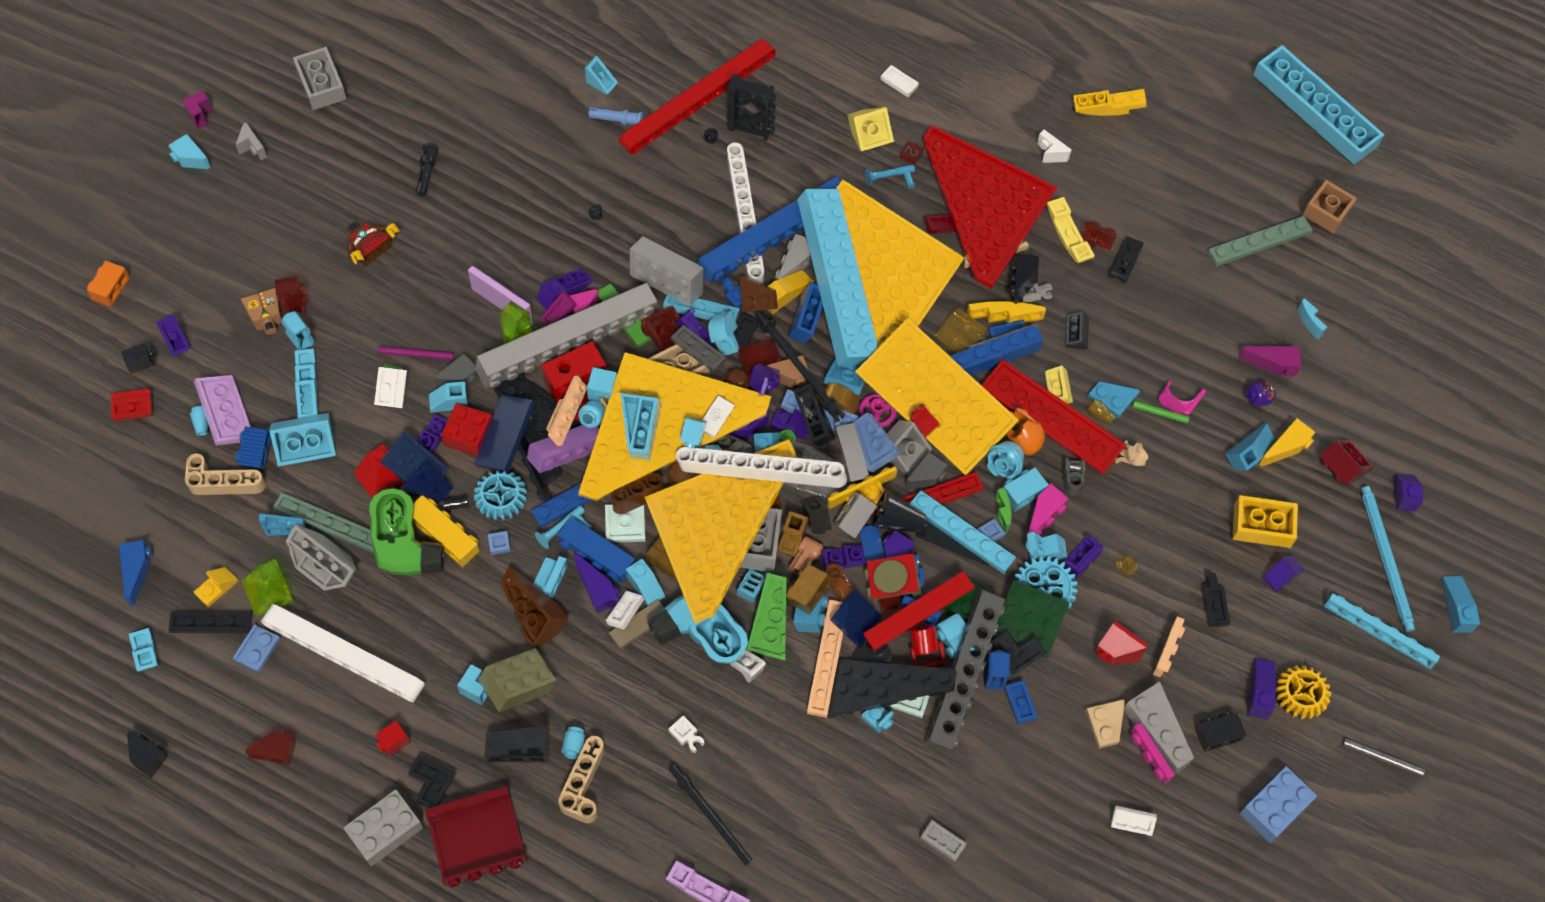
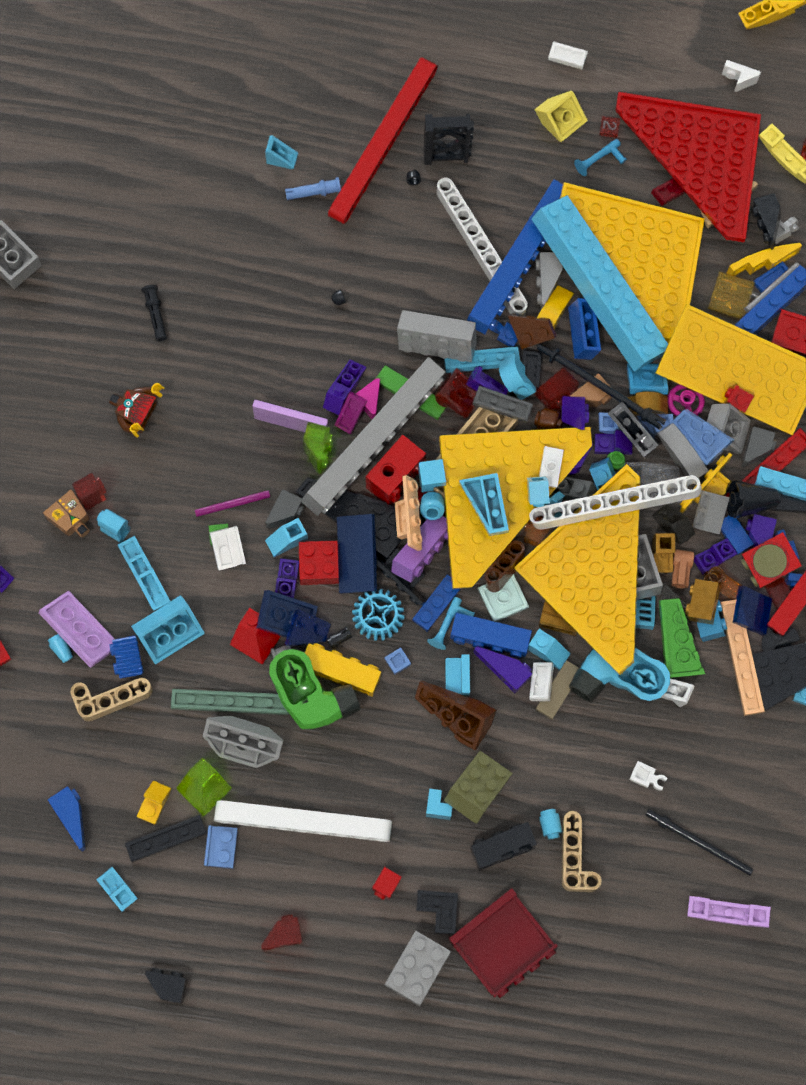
camera: 20 degrees left, 10 degrees up
(279, 525) = (191, 721): dark azure wing -> none

